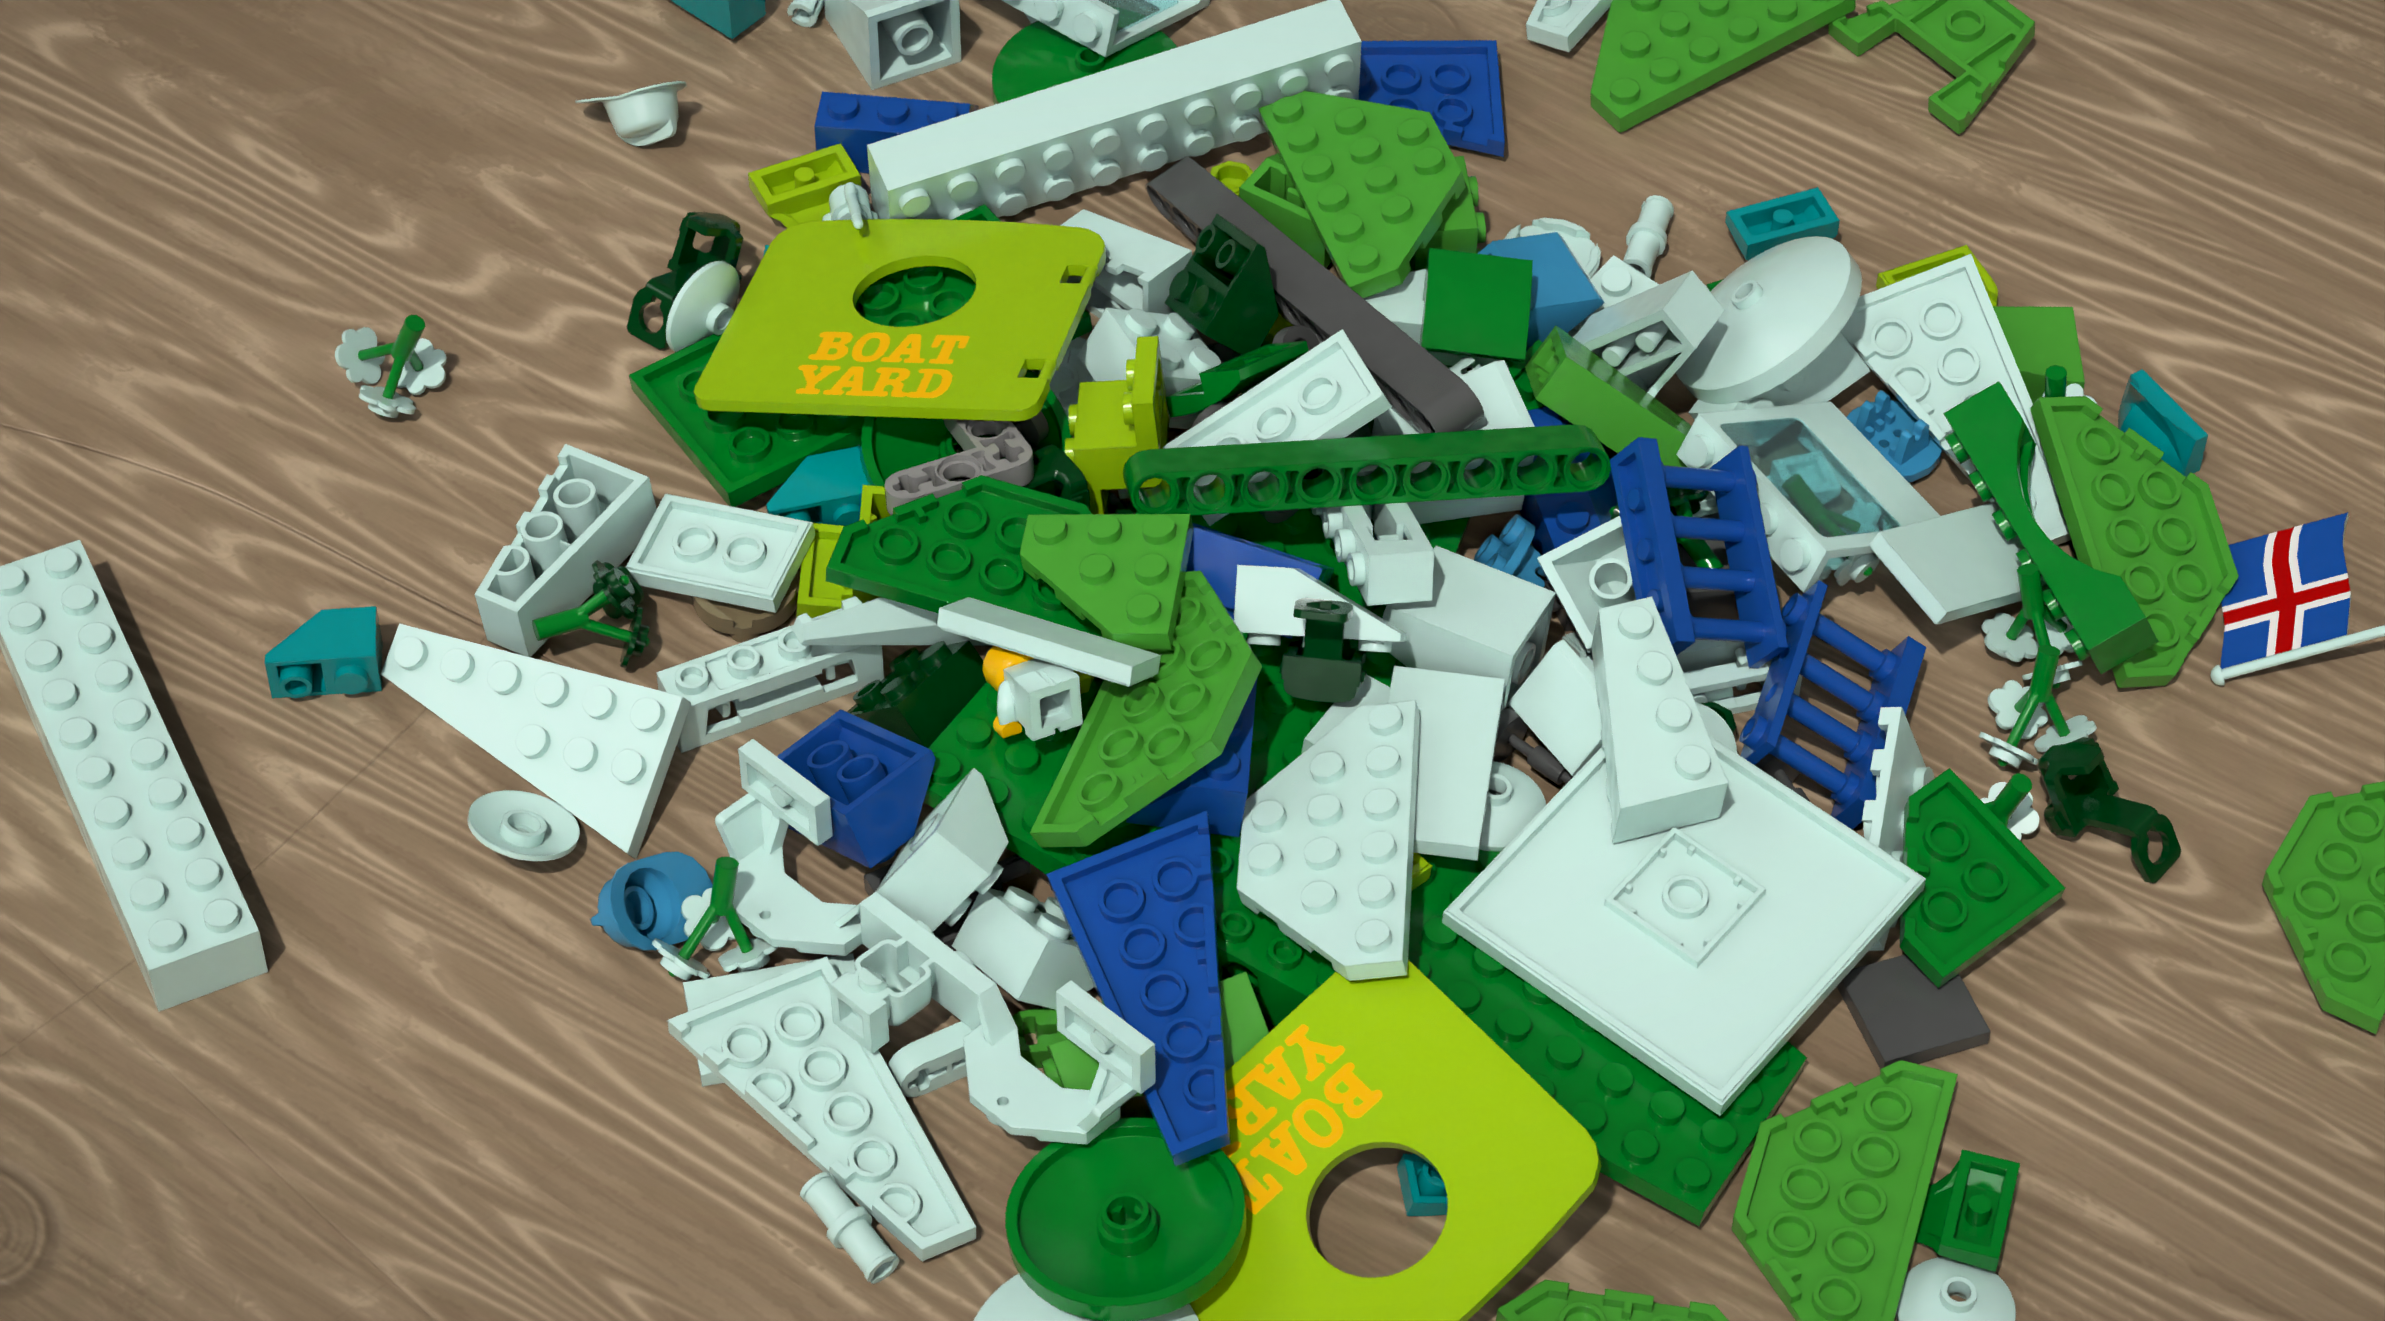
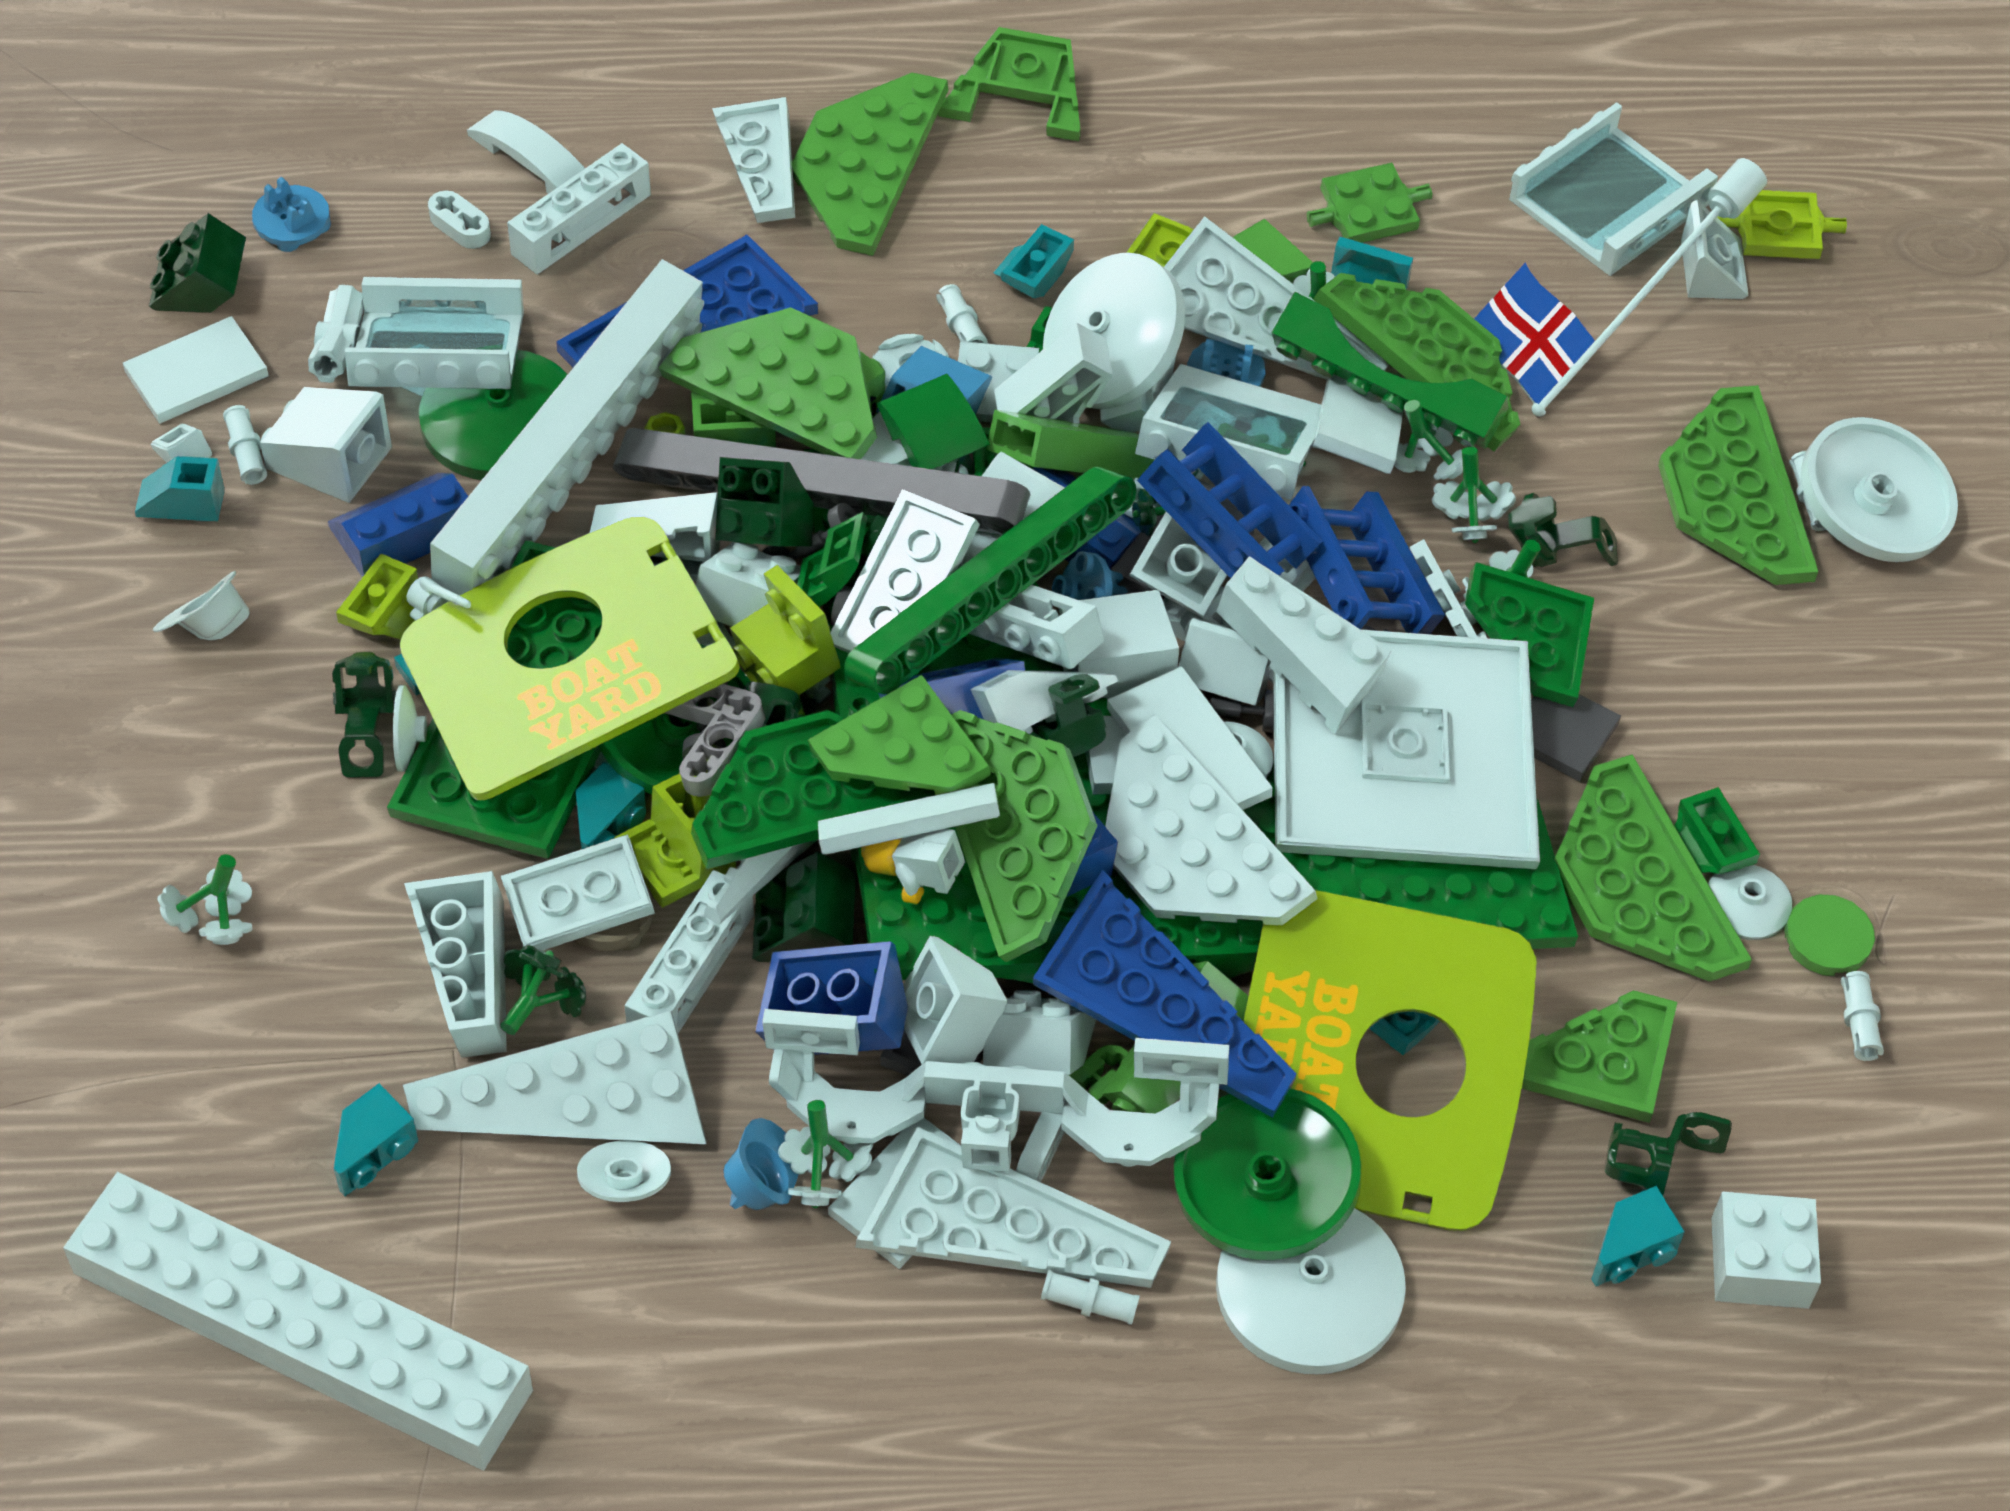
camera: 40 degrees left, 5 degrees up
(2229, 363) = (1369, 203): none -> bright green plate

